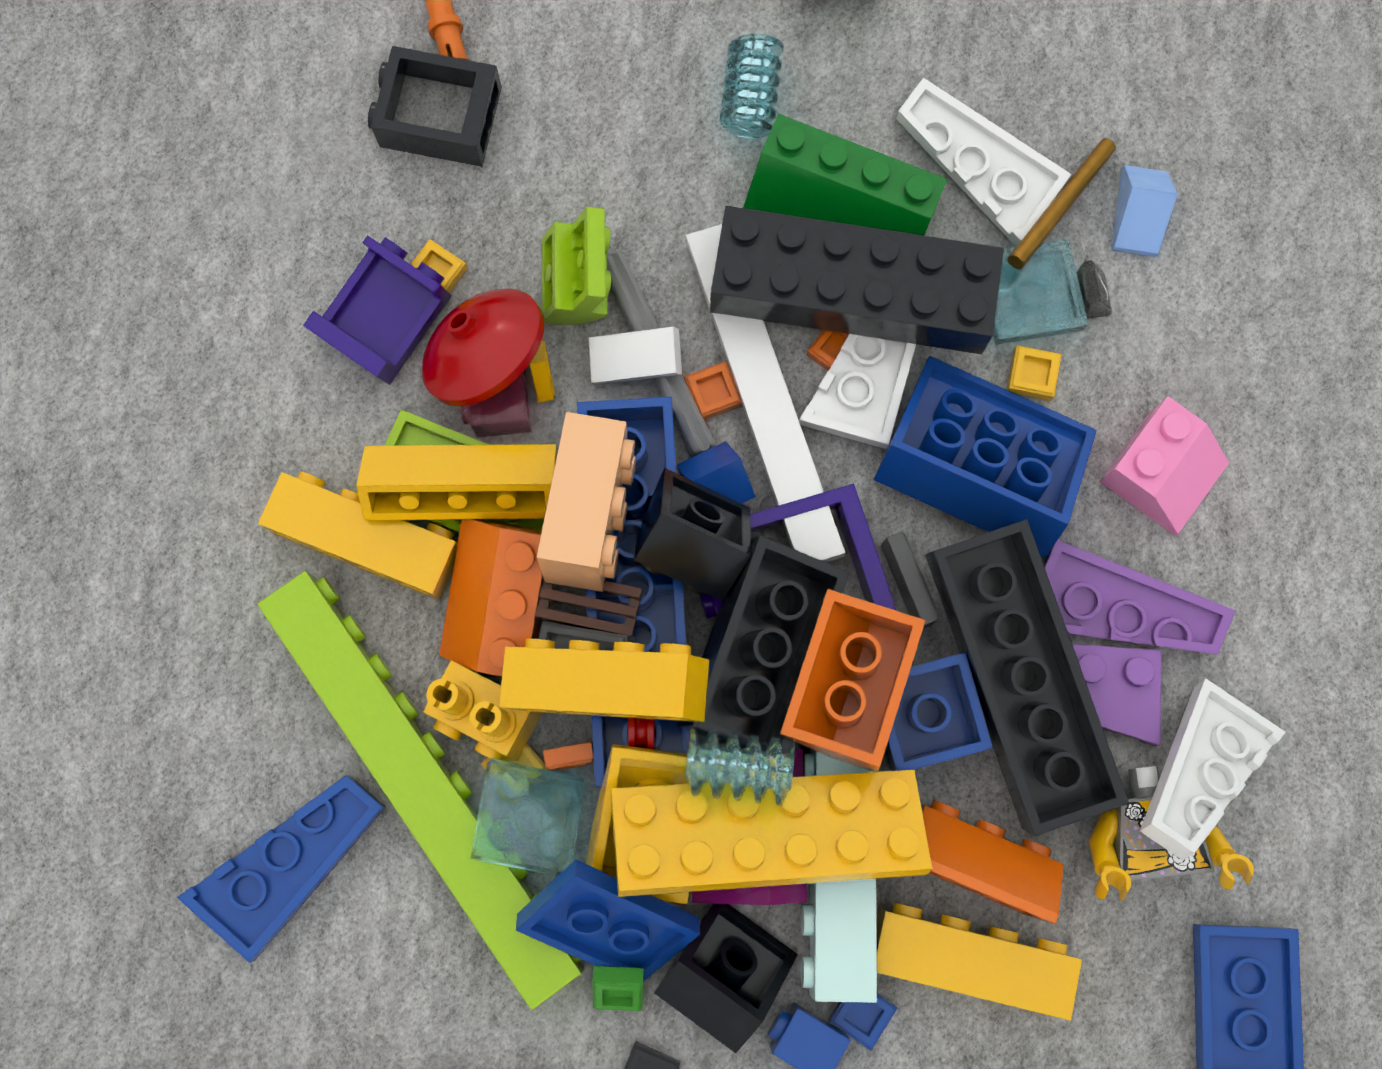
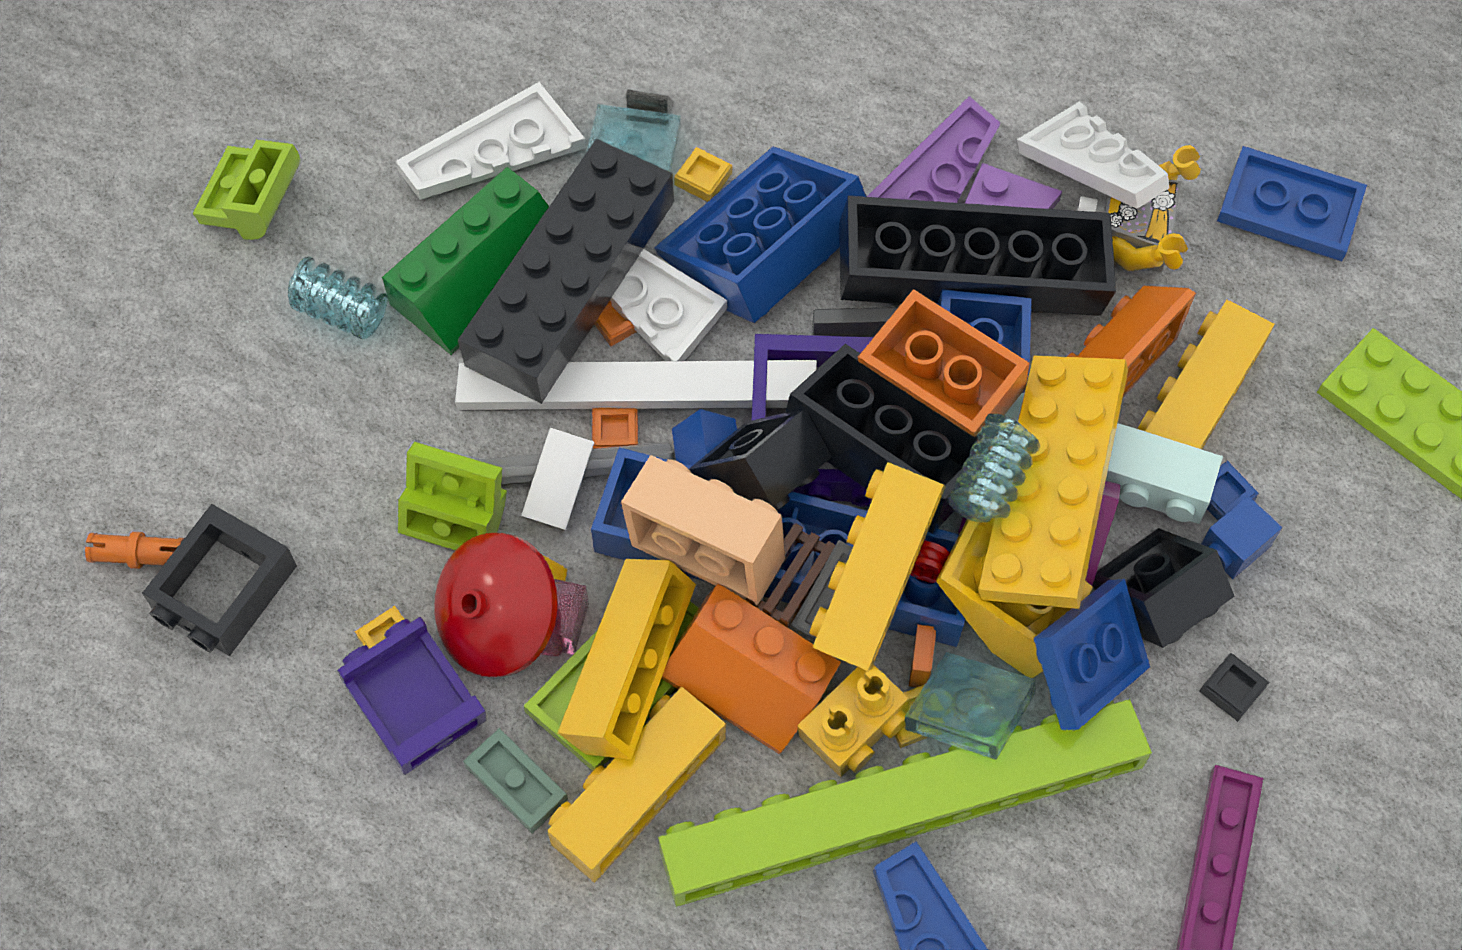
camera: 70 degrees left, 15 degrees down
(333, 429) = (515, 780): none -> sand green plate
(618, 988) = (1149, 681): bright green tile -> none
(1061, 204) = (560, 95): pearl gold bar -> none
(1143, 210) = (592, 44): light blue slope -> none
(1167, 465) = (823, 105): bright pink slope -> none

